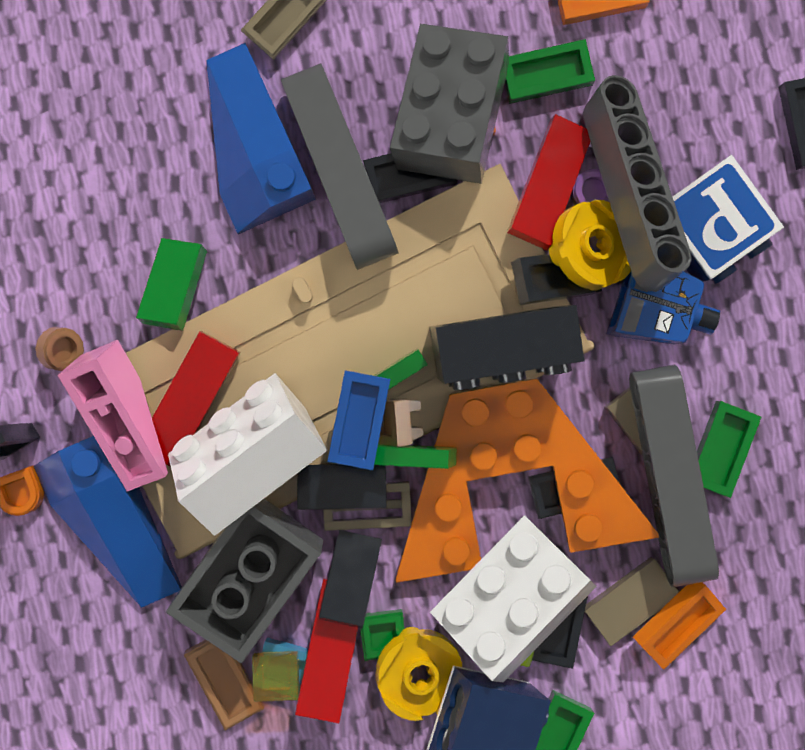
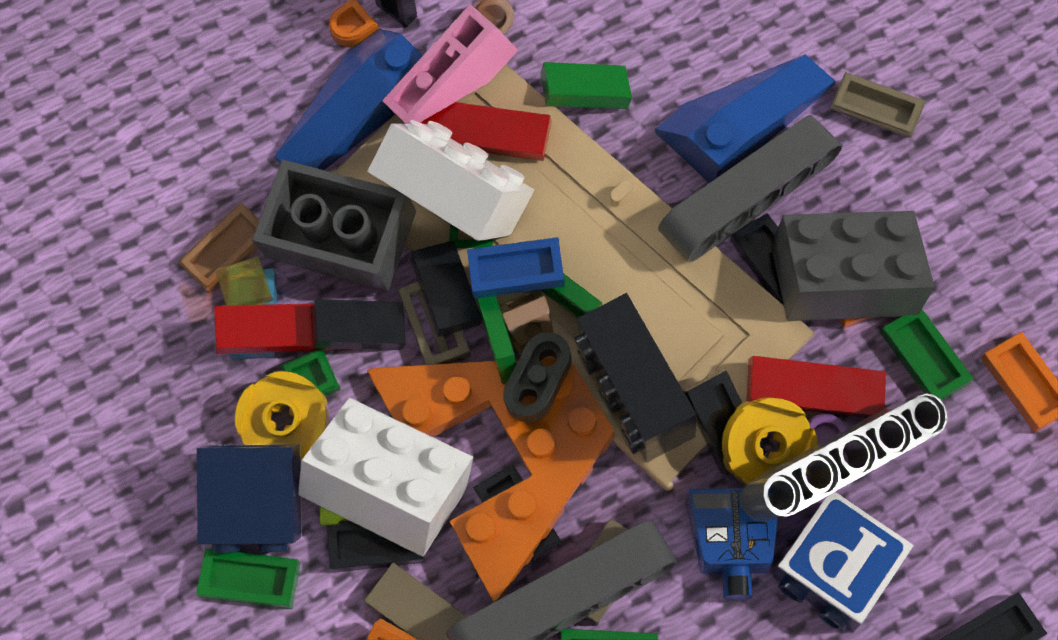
camera: 75 degrees right, 20 degrees down
(470, 433) = (535, 379): none -> pearl dark grey plate

